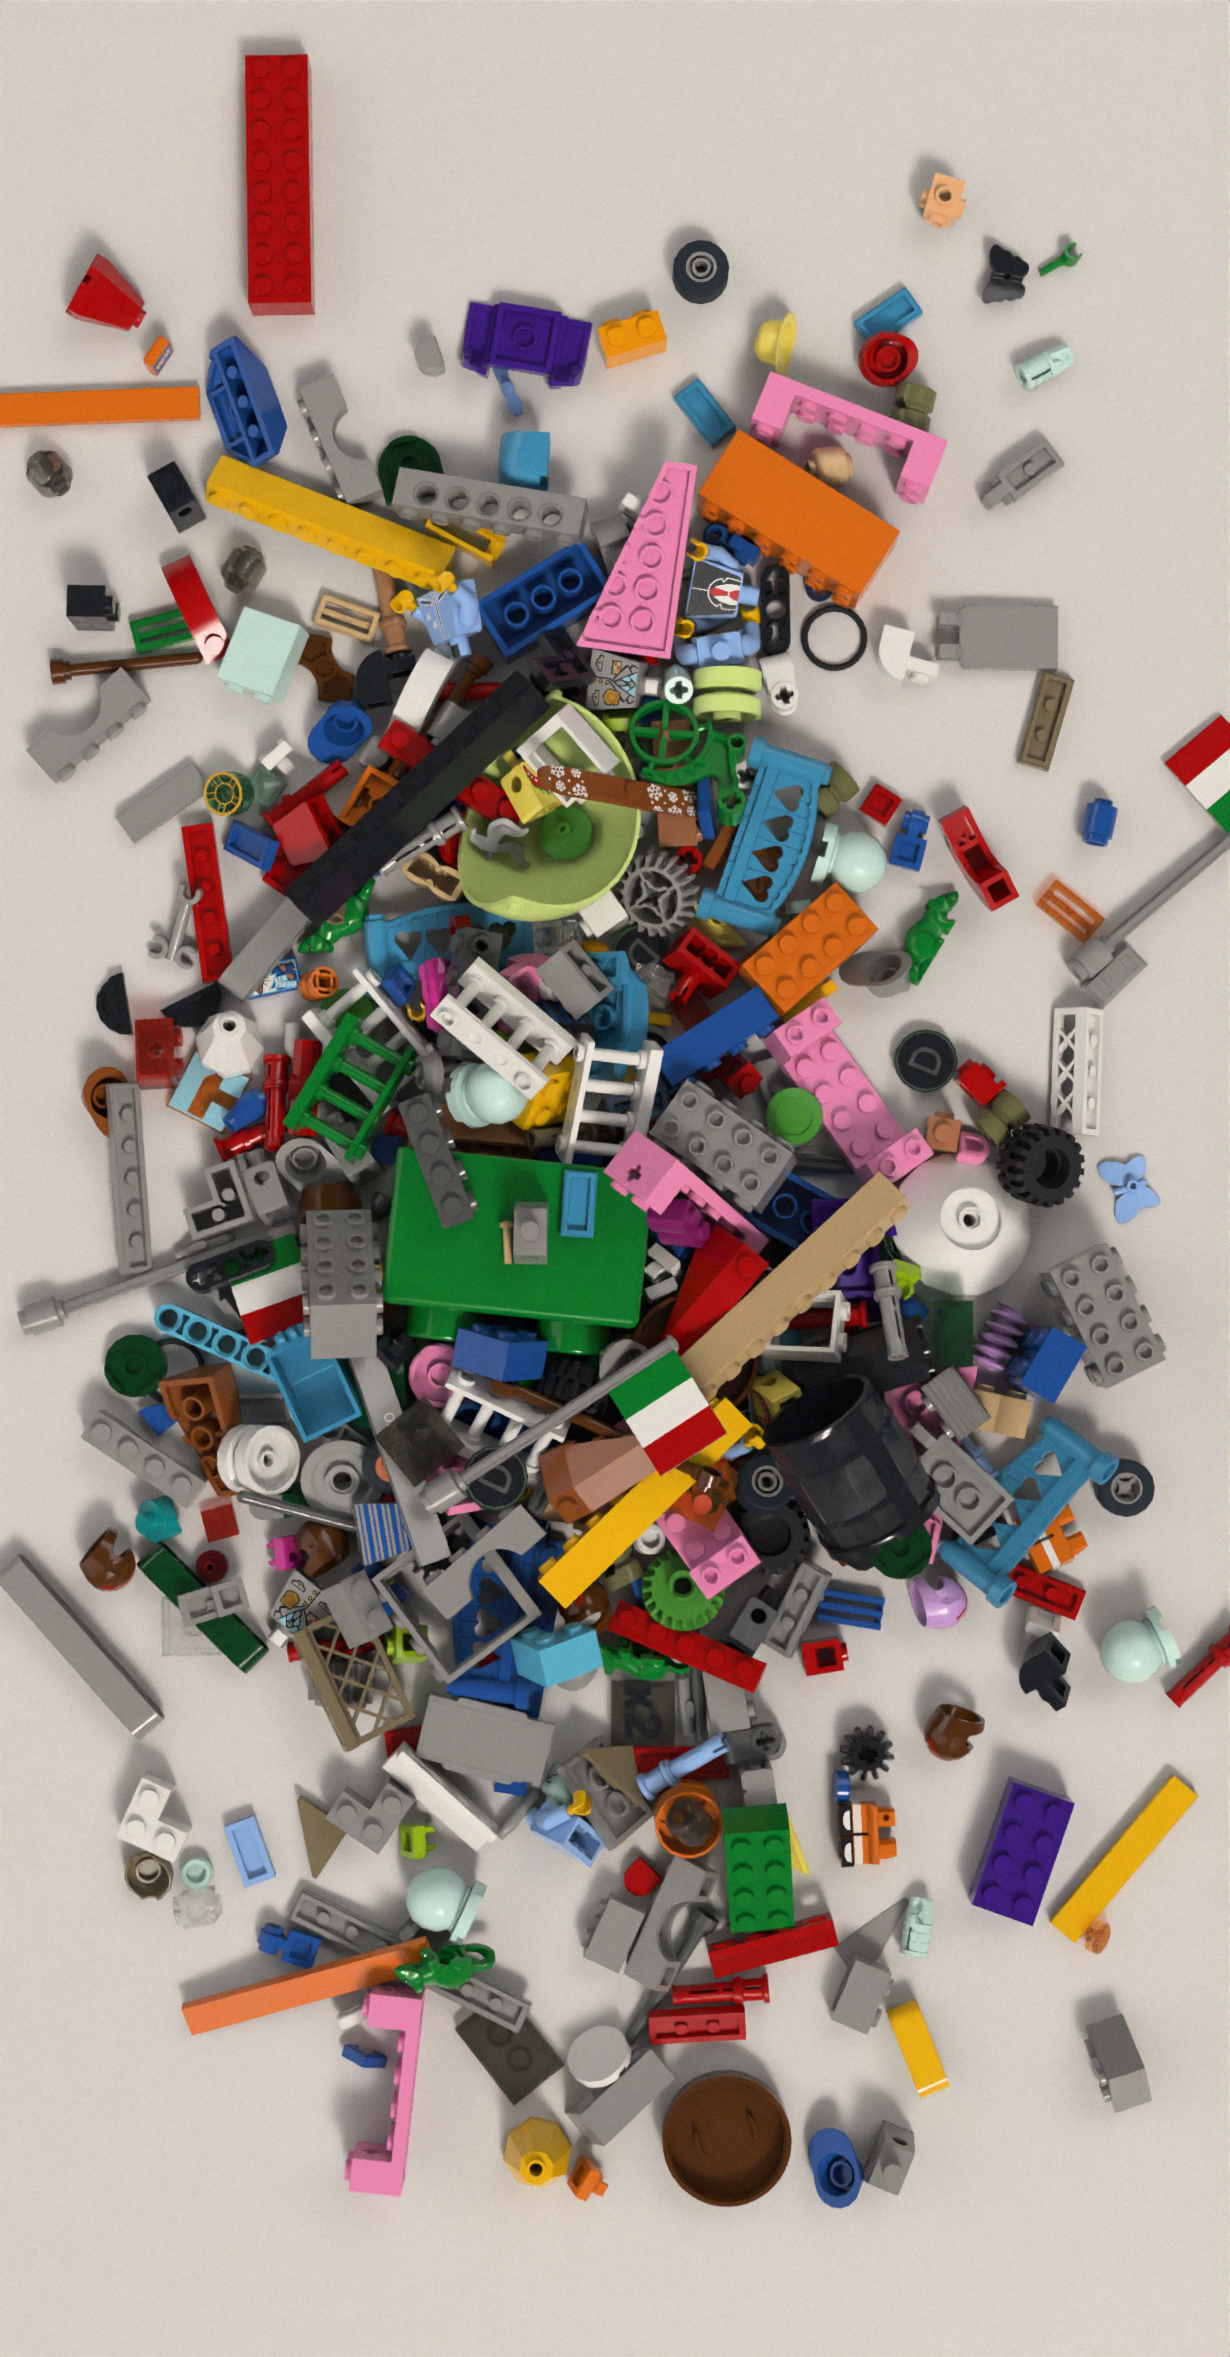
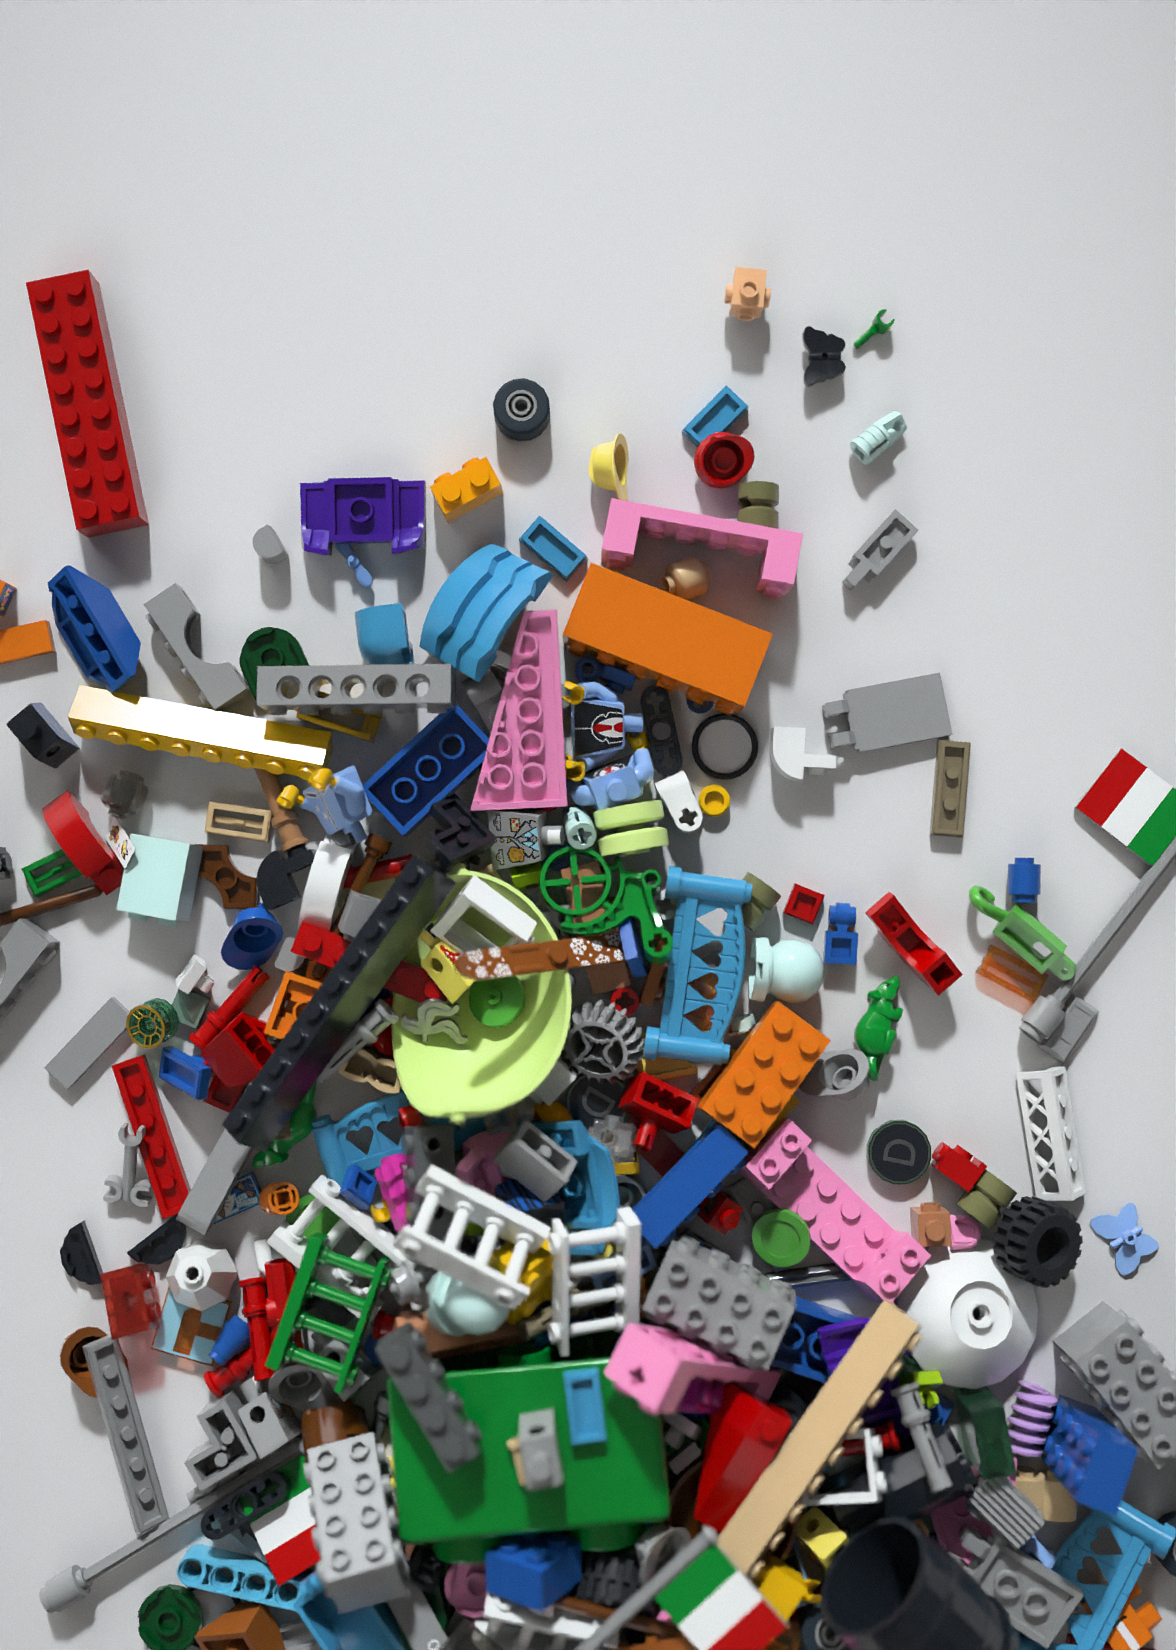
camera: 15 degrees left, 0 degrees up
(230, 614) = (120, 842): none -> white sticker
(621, 452) = (479, 607): none -> dark azure slope
(813, 688) = (714, 800): none -> yellow tile
(1087, 869) = (1020, 933): none -> bright green piece

